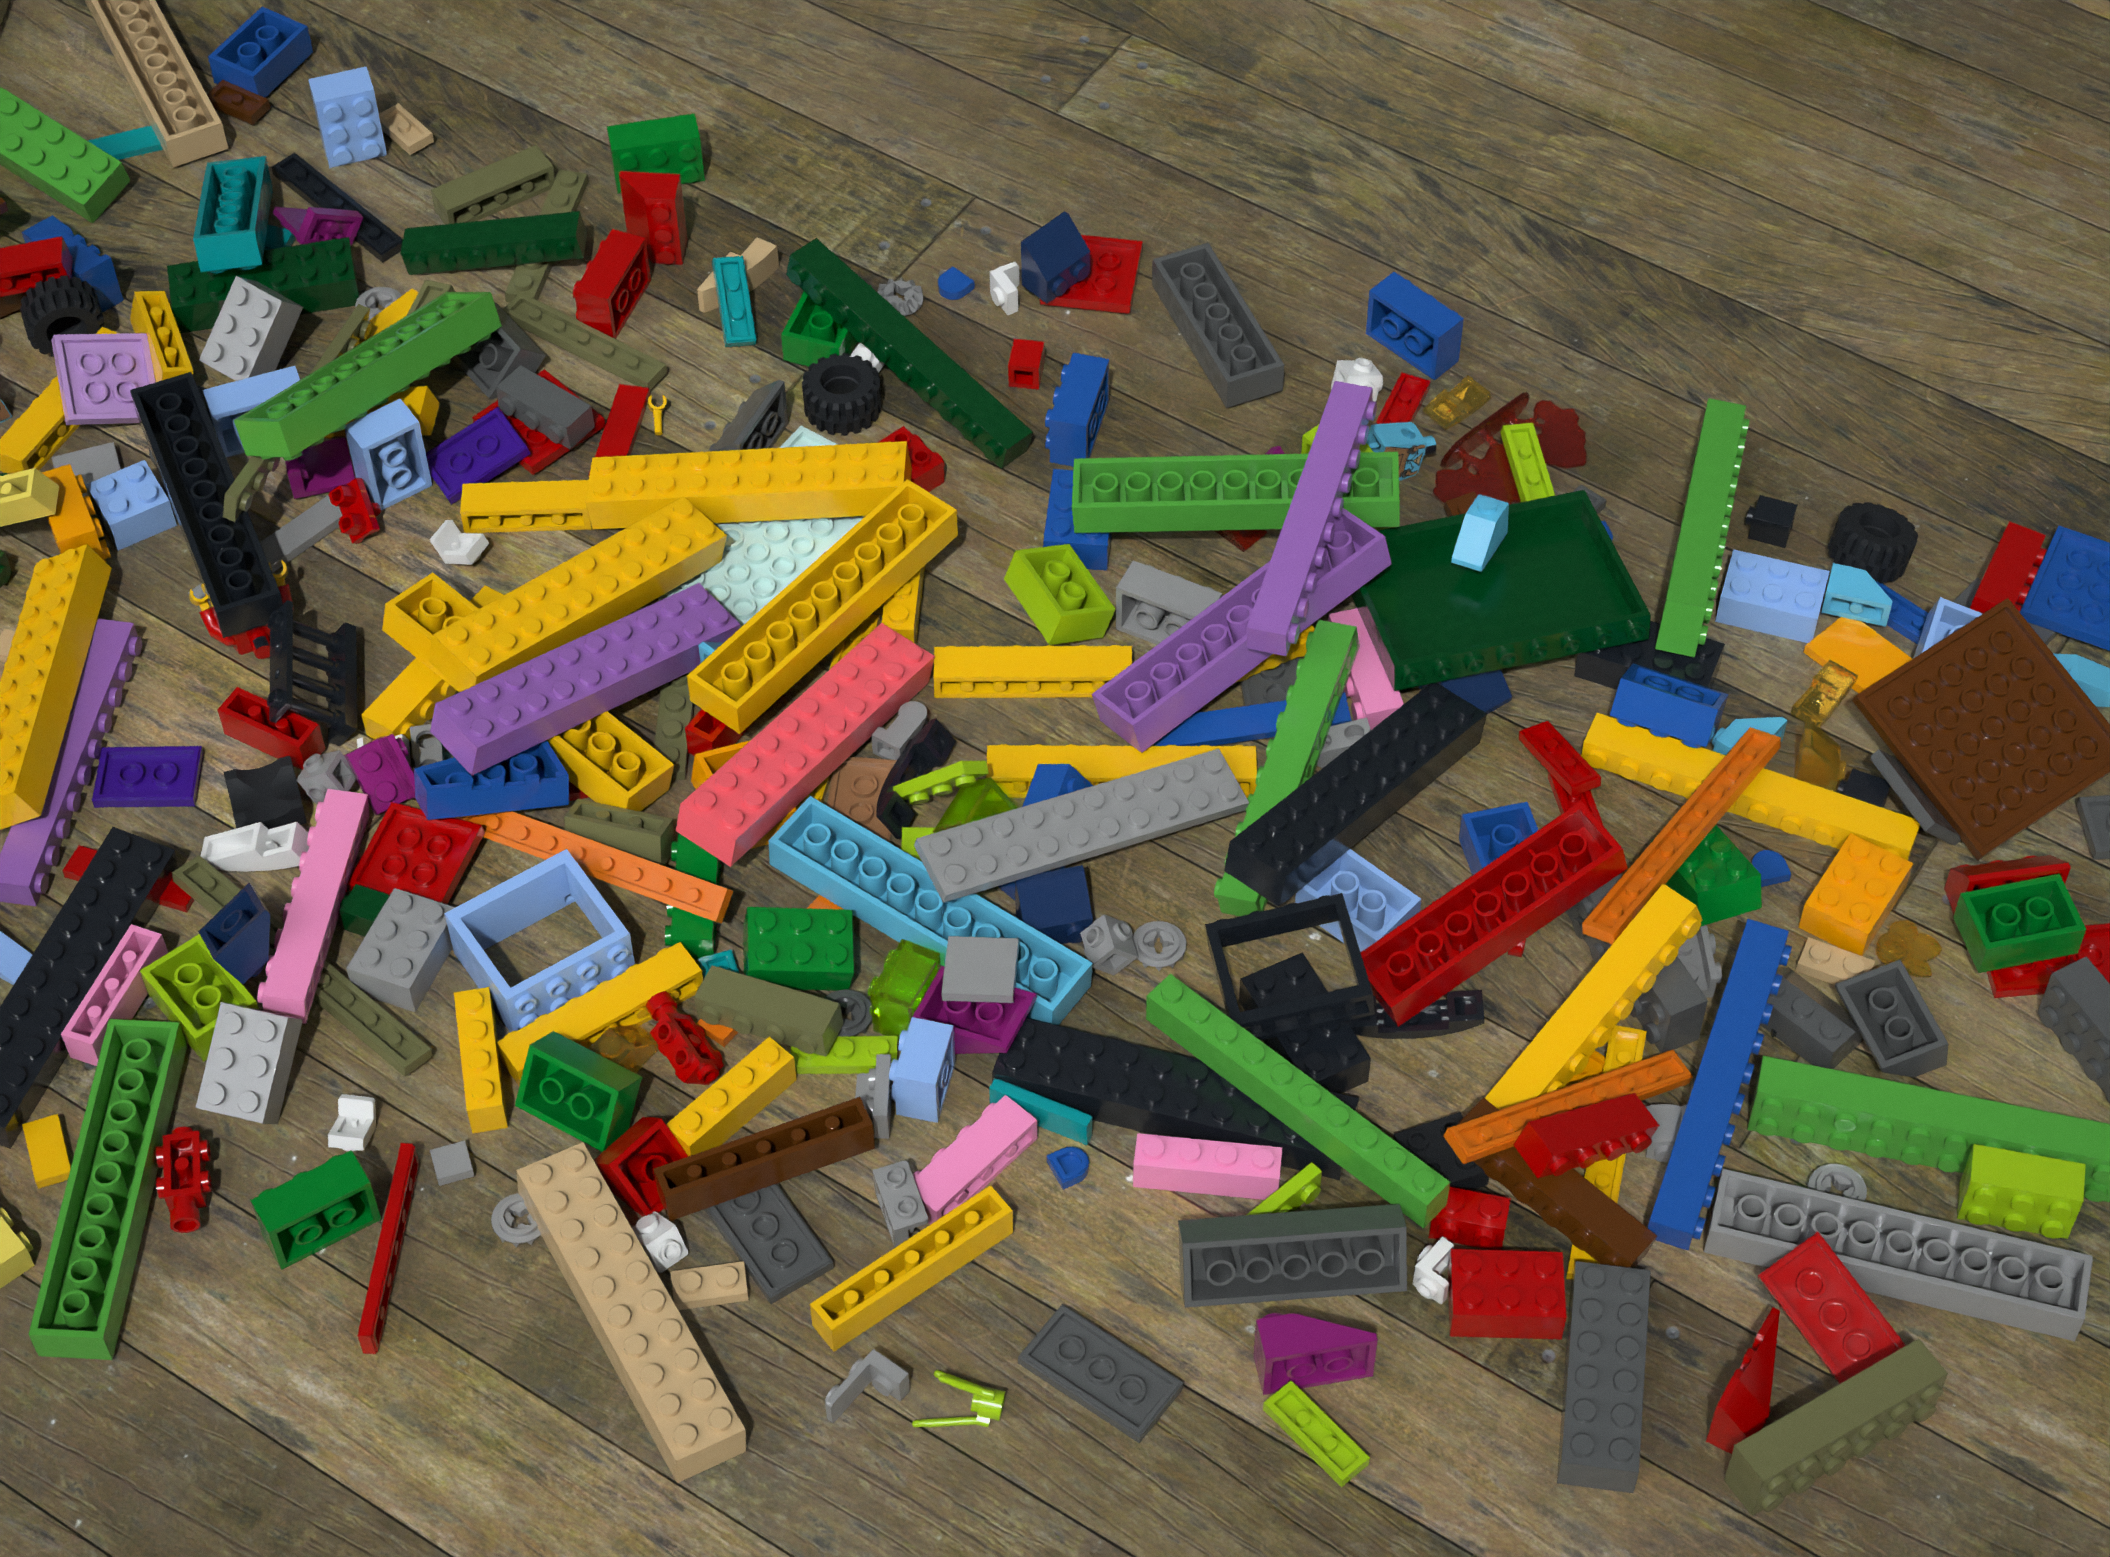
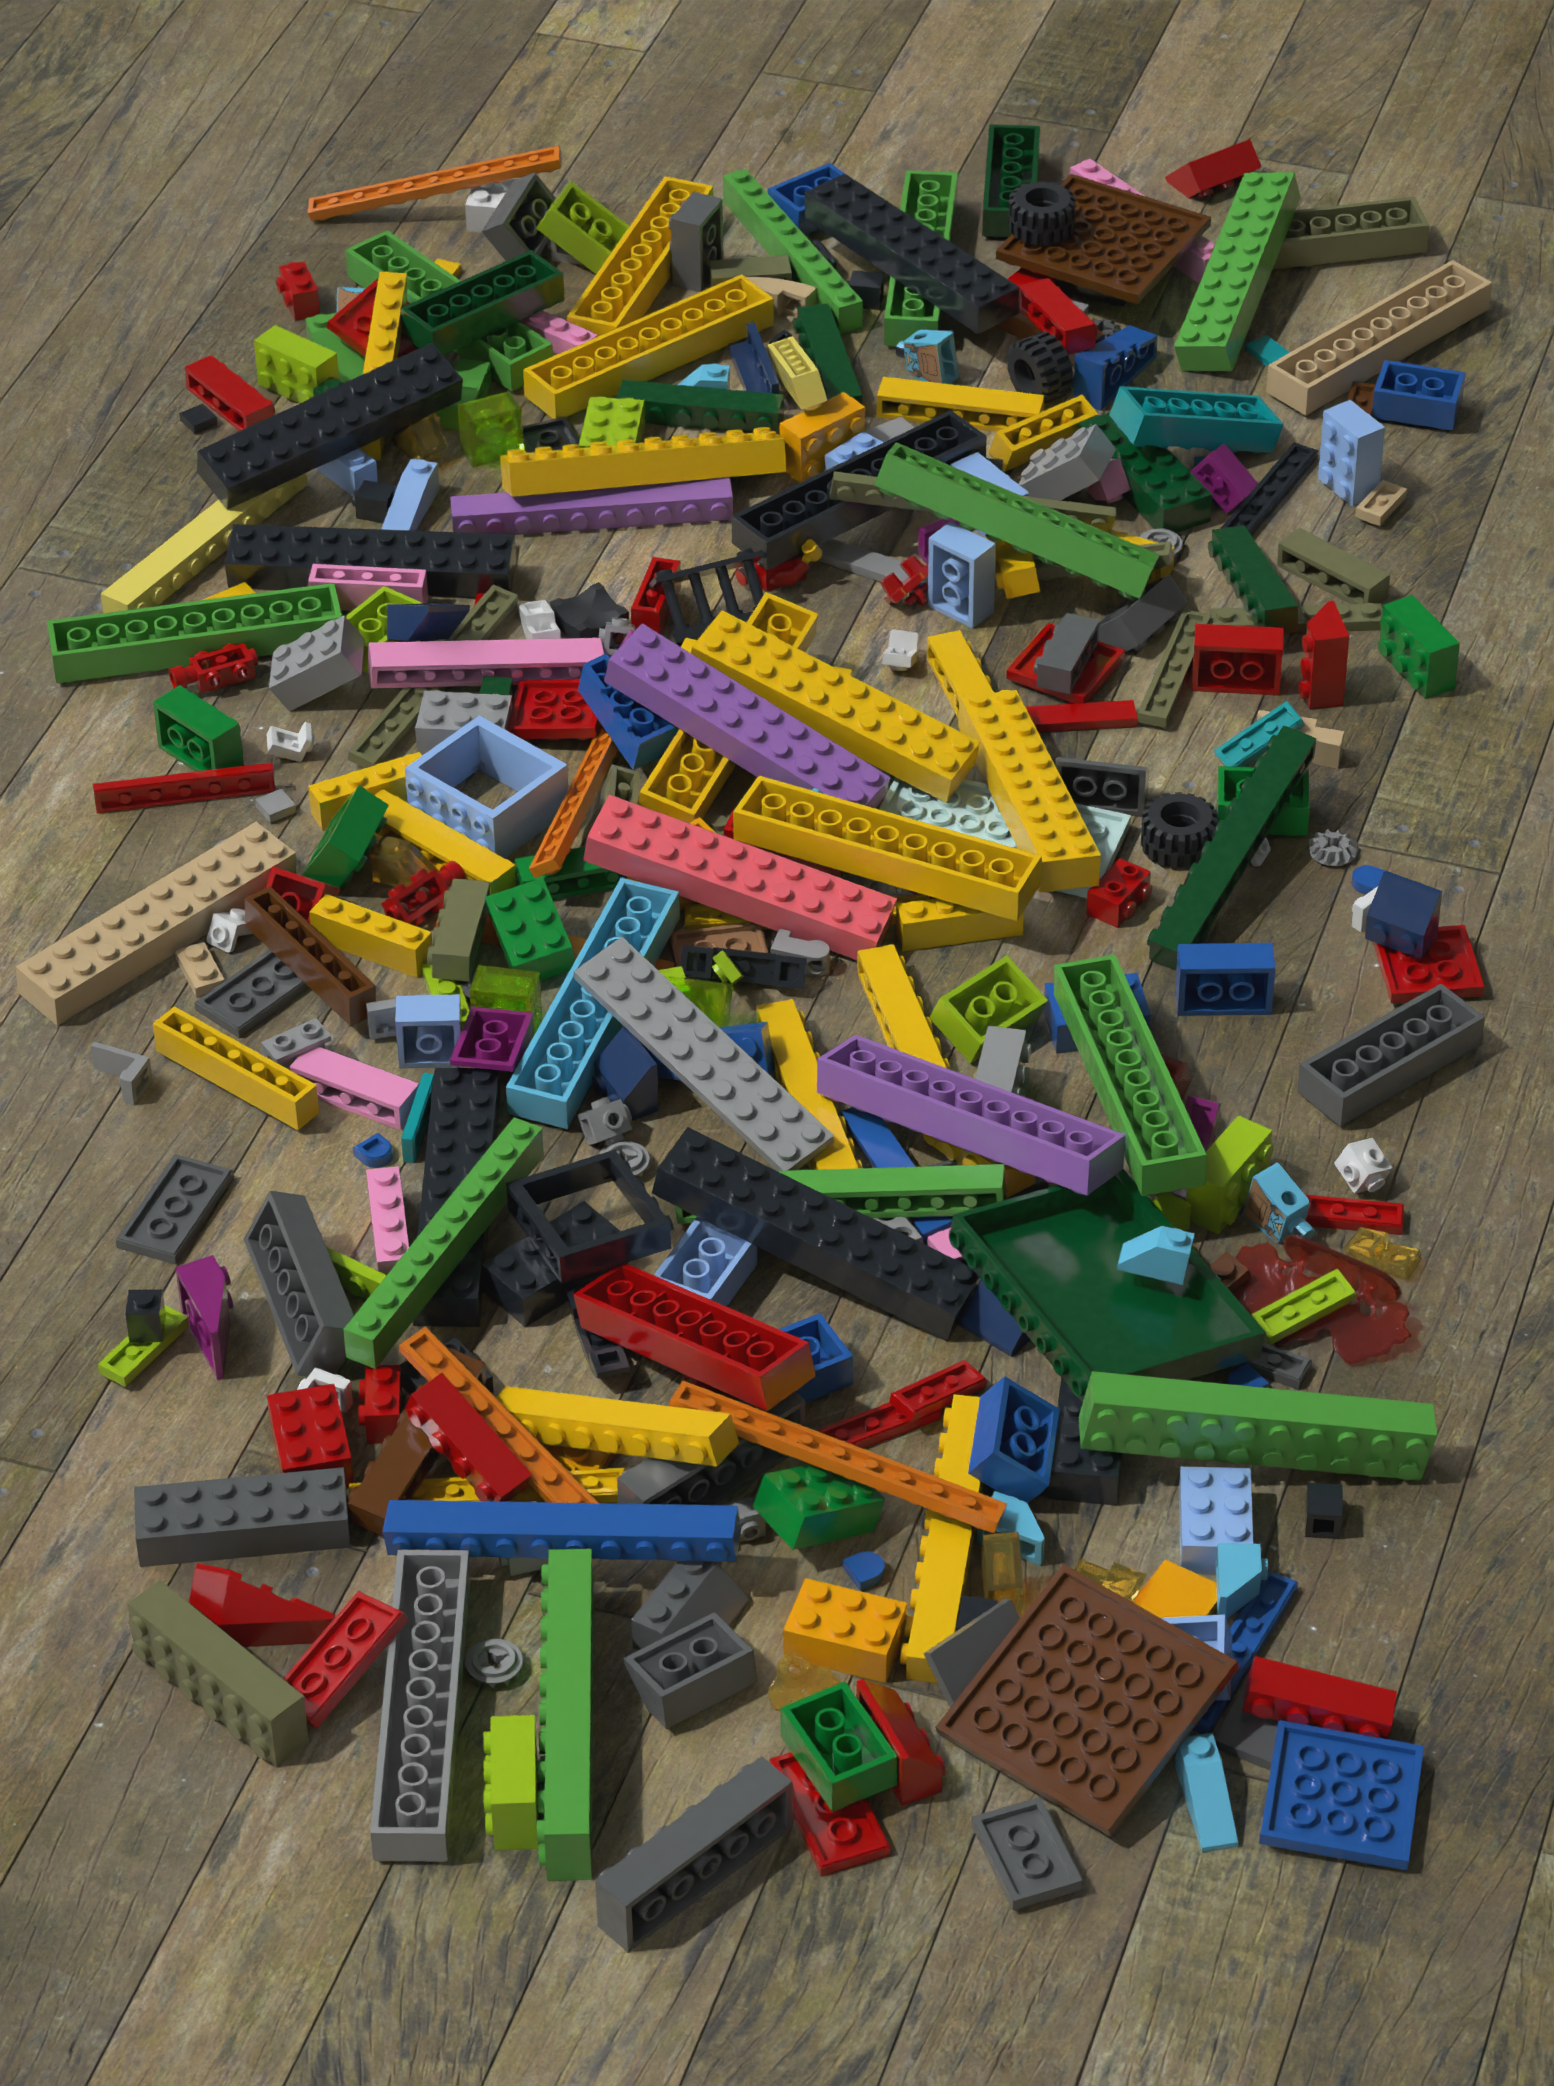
camera: 75 degrees right, 10 degrees down
(98, 375) = (984, 399): lavender plate -> none
(148, 776) = (596, 556): dark purple tile -> none
(475, 454) = (1007, 635): dark purple tile -> none
(657, 414) = (1118, 726): yellow hand -> none
(980, 969) = (525, 1027): light grey tile -> none
(986, 1402) = (125, 1143): lime plant -> none
(1026, 364) = (1286, 939): red brick -> none
(1302, 1412) = (145, 1315): none -> black brick
(1310, 519) = (1088, 1102): medium lavender brick -> none
(1414, 325) = (1456, 1190): blue brick -> none
(1831, 963) = (764, 1631): tan plate -> none
(1873, 540) = (1305, 1602): black tyre -> none

